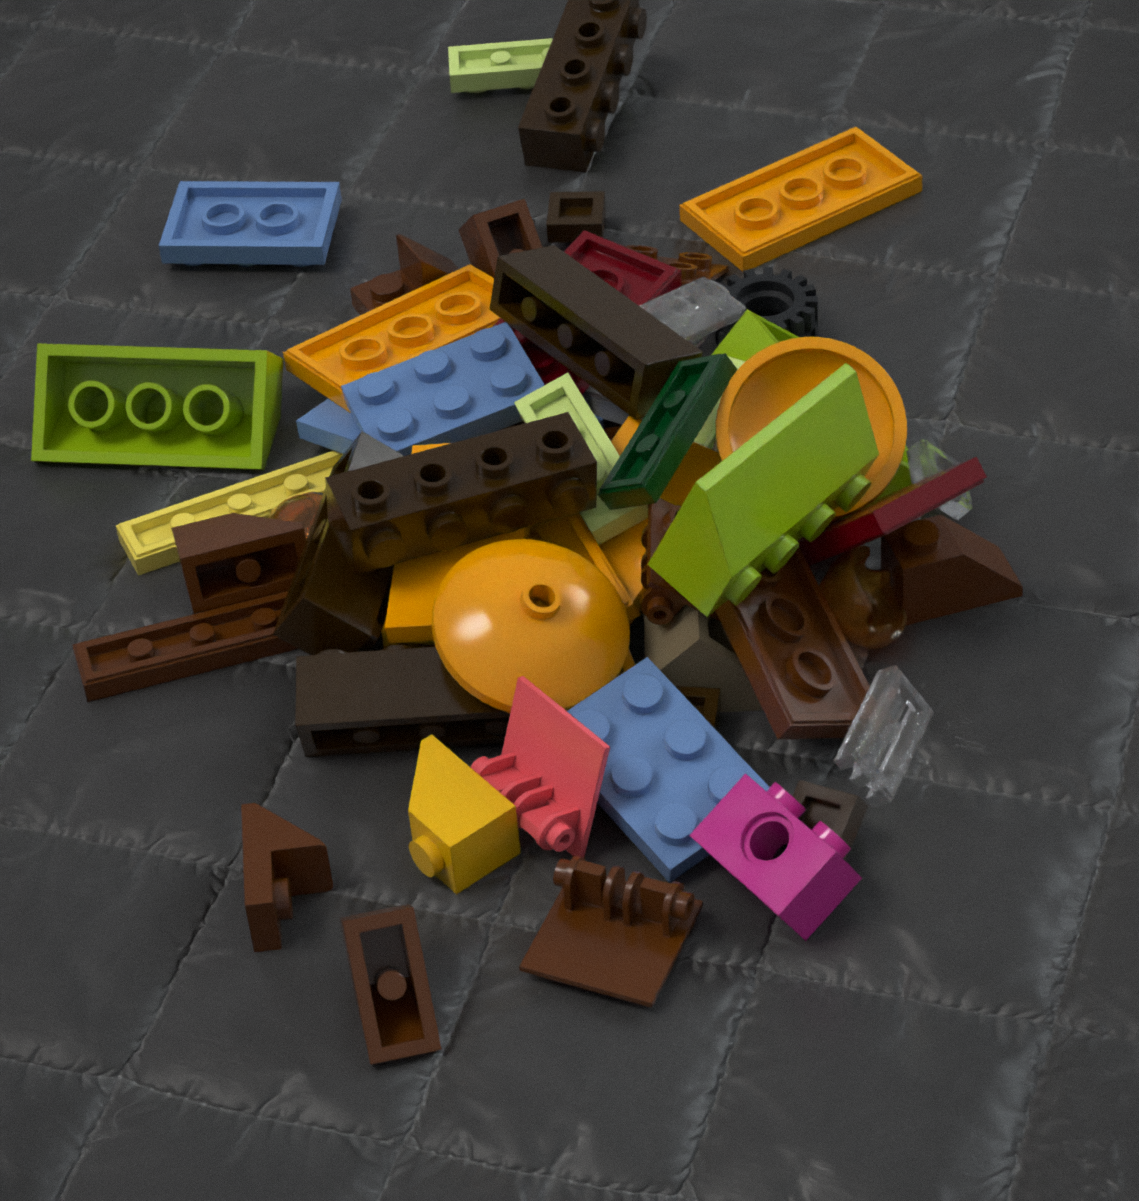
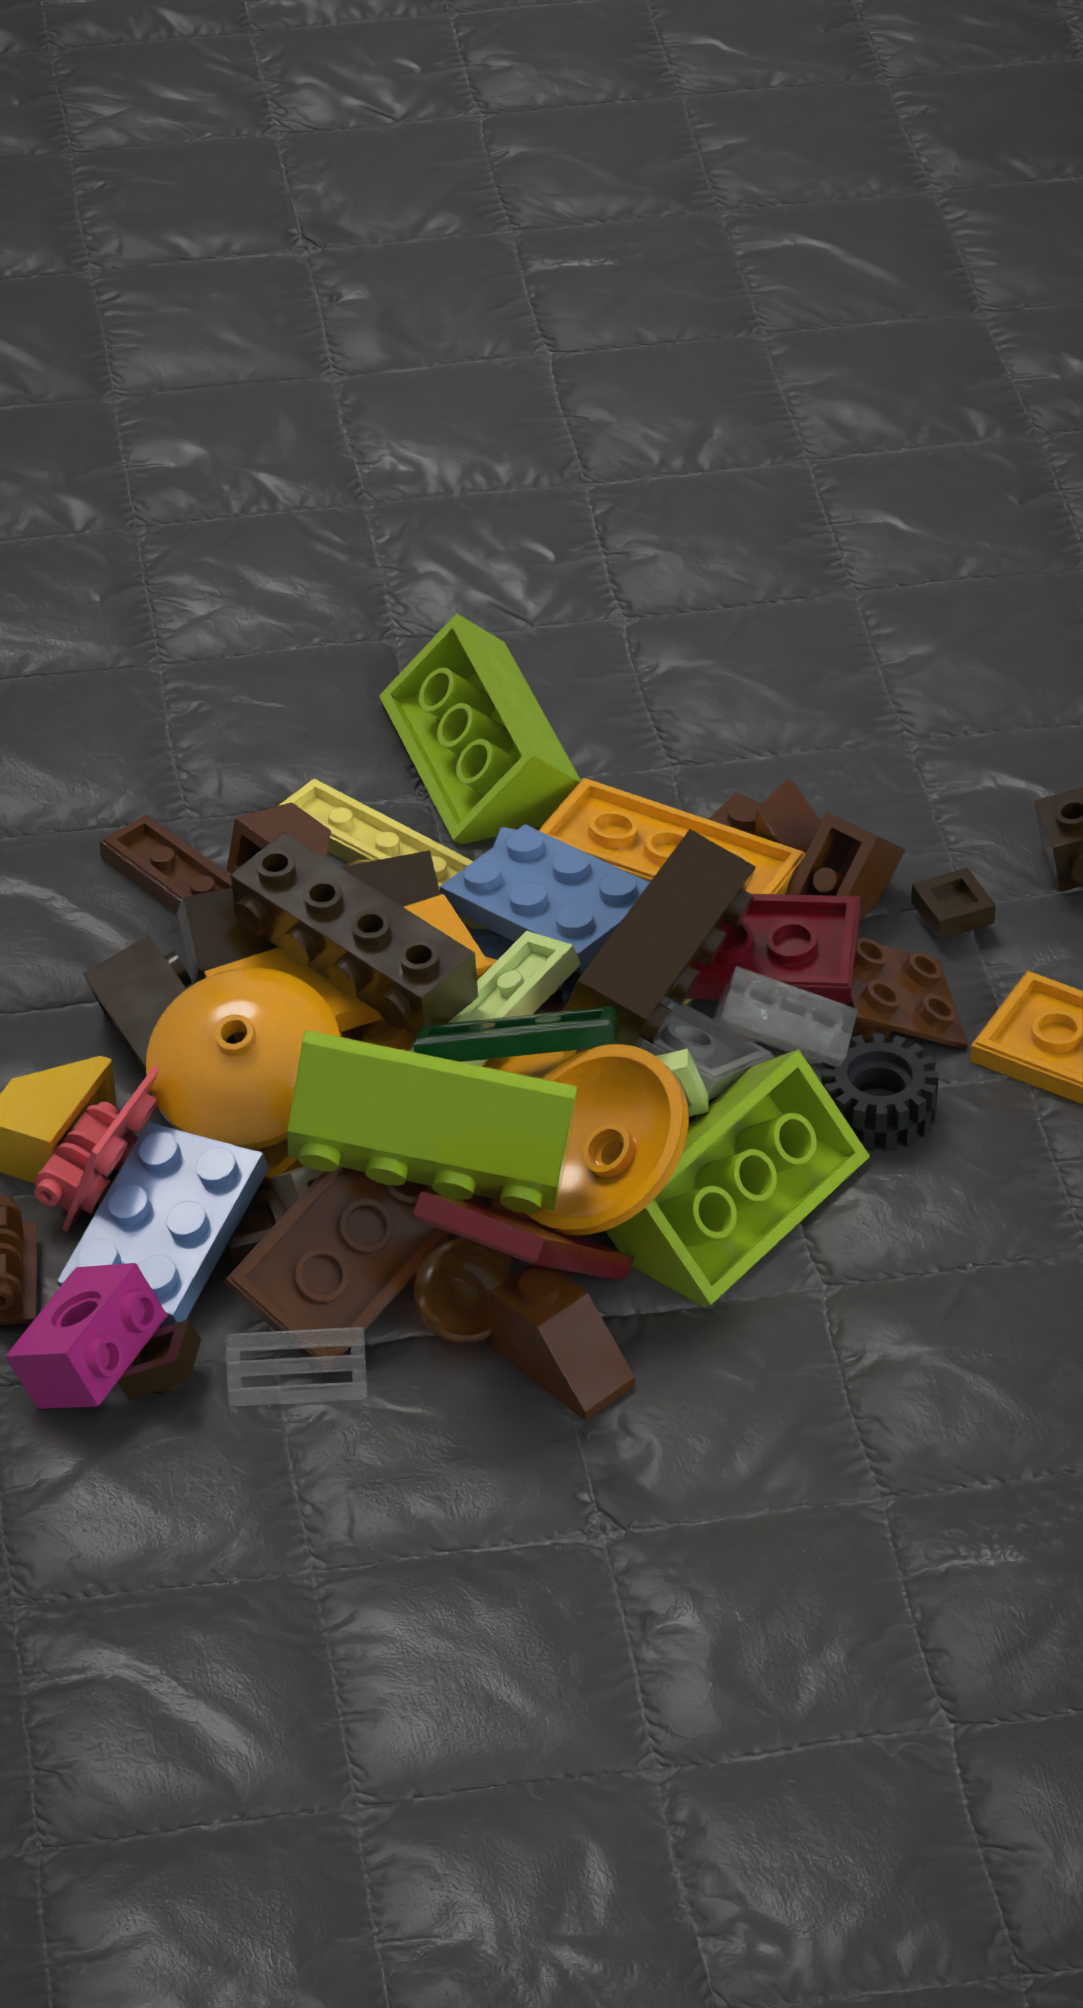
camera: 60 degrees right, 0 degrees up
(250, 223) = (794, 690): medium blue plate -> none
(927, 460) = (692, 1295): clear tile -> none

